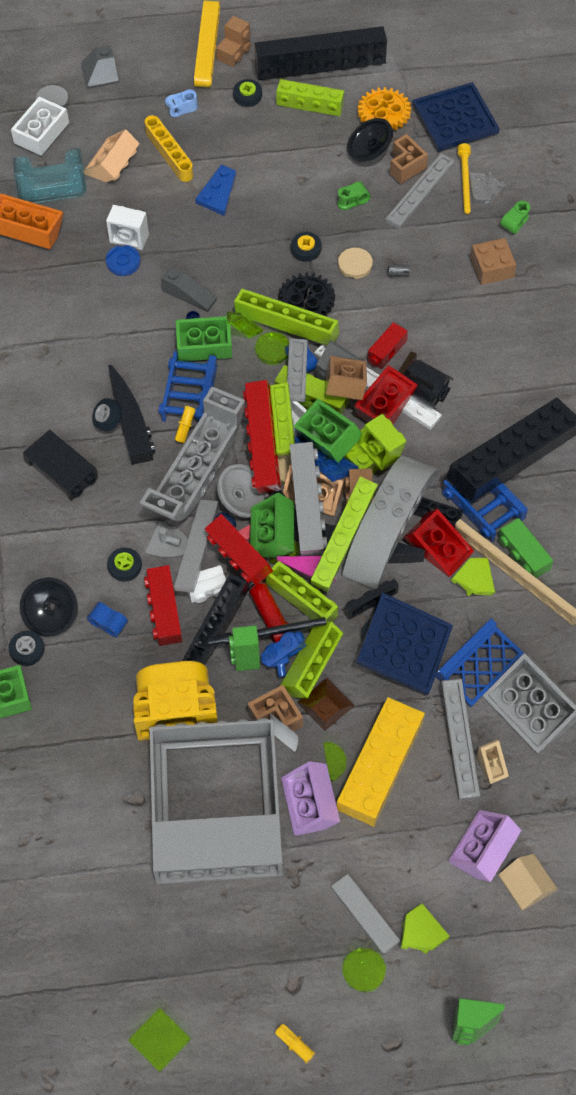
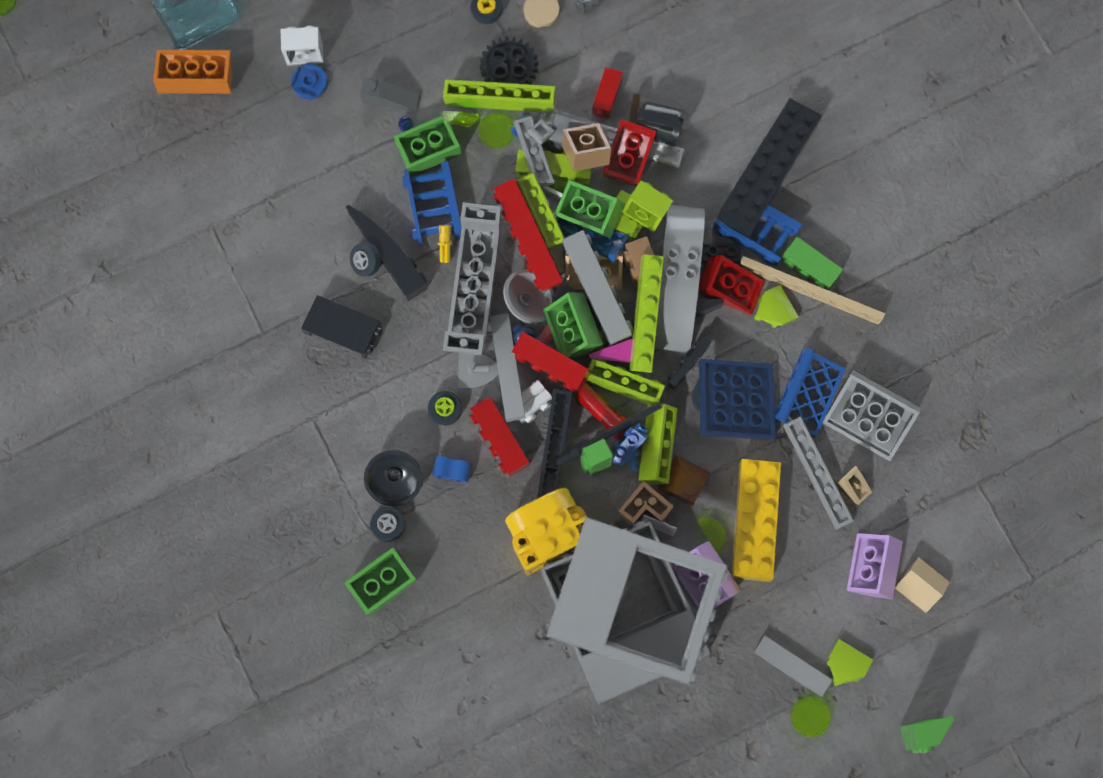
camera: 20 degrees left, 15 degrees up
(188, 752) = (595, 588): none -> light grey panel
(310, 354) = (541, 131): none -> light grey tile

